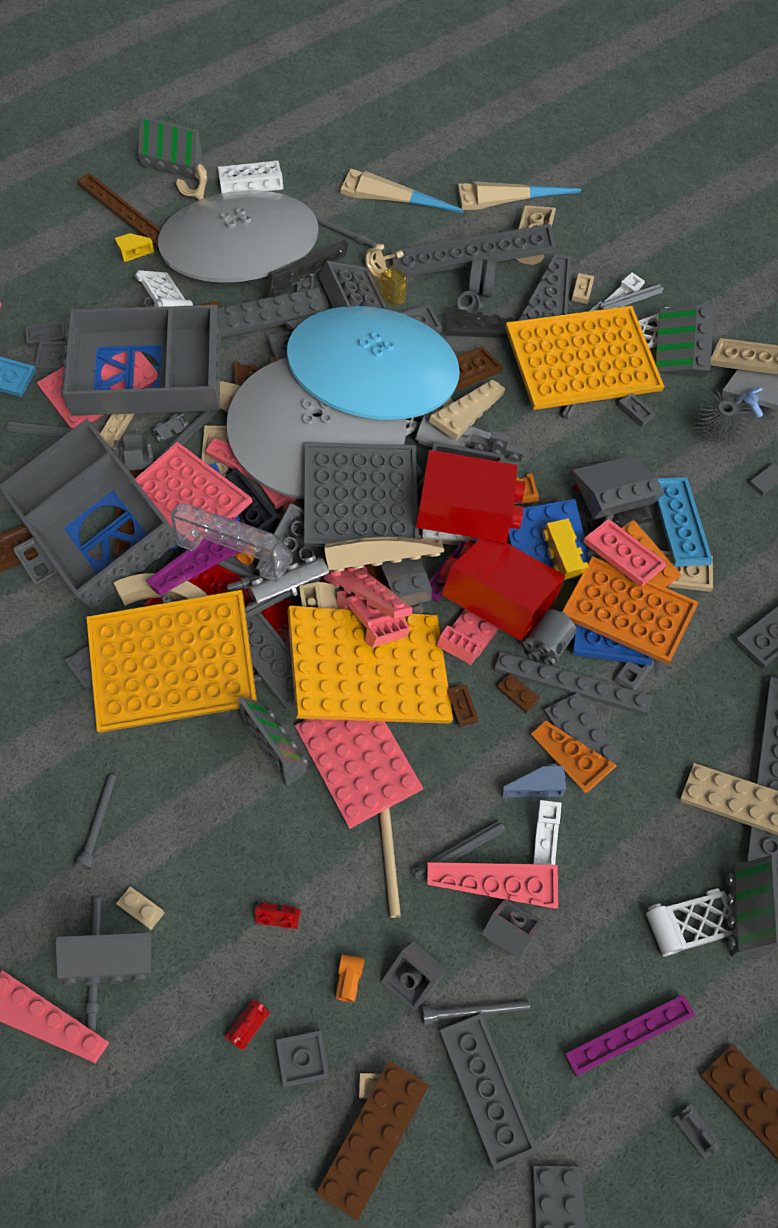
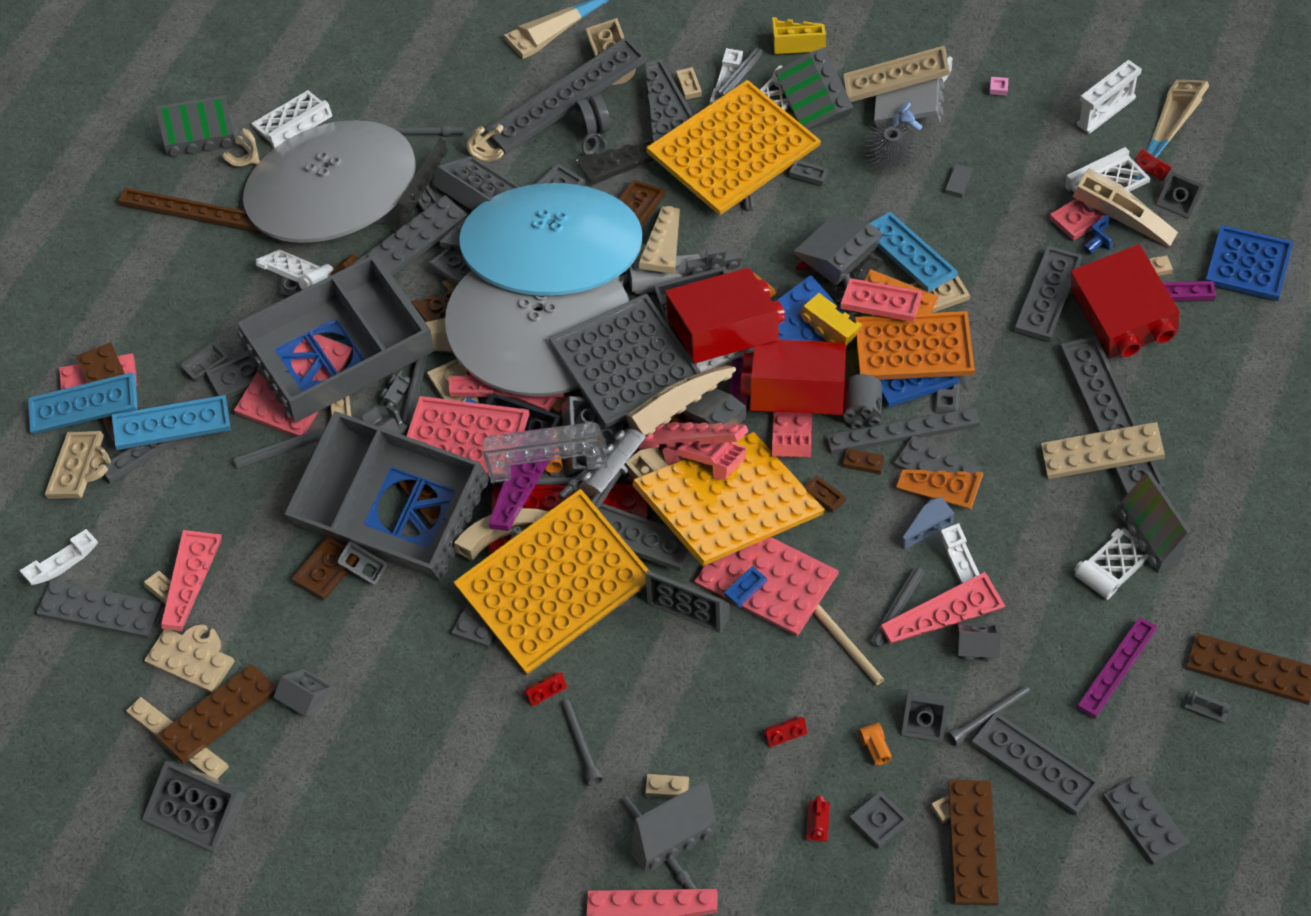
camera: 25 degrees left, 5 degrees down
(98, 755) = (541, 691): none -> red hinge
(133, 246) = (227, 239): yellow slope -> none
(329, 757) = (745, 586): none -> blue plate
(371, 186) = (420, 75): tan plate -> none
(393, 286) = (515, 161): clear yellow brick -> none
(700, 290) = (797, 37): none -> yellow wedge

